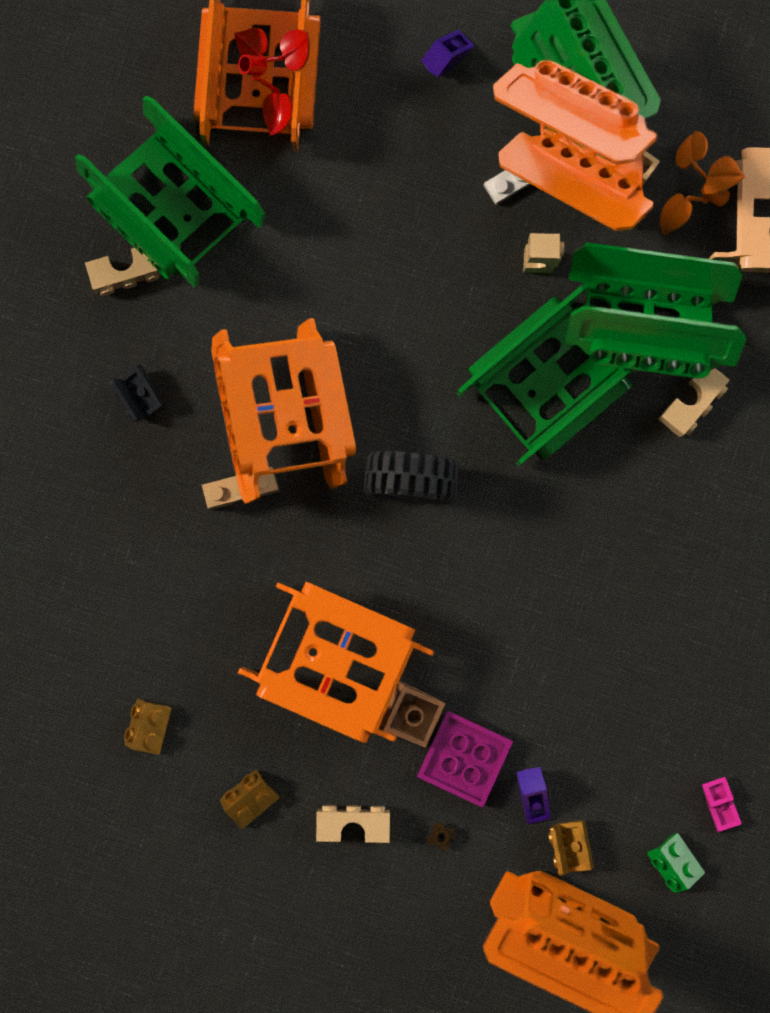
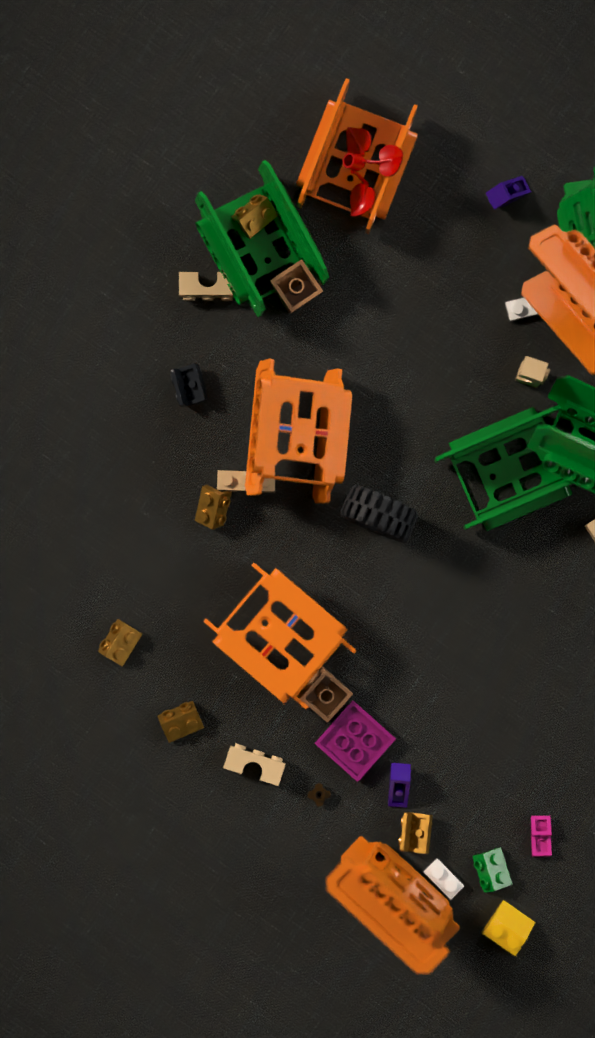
camera: 15 degrees right, 0 degrees up
(155, 168) = (255, 215): none -> pearl gold bracket
(209, 530) = (212, 507): none -> pearl gold bracket
(230, 238) = (296, 286): none -> medium nougat slope
(621, 891) = (443, 878): none -> white plate
(717, 928) = (508, 928): none -> yellow slope

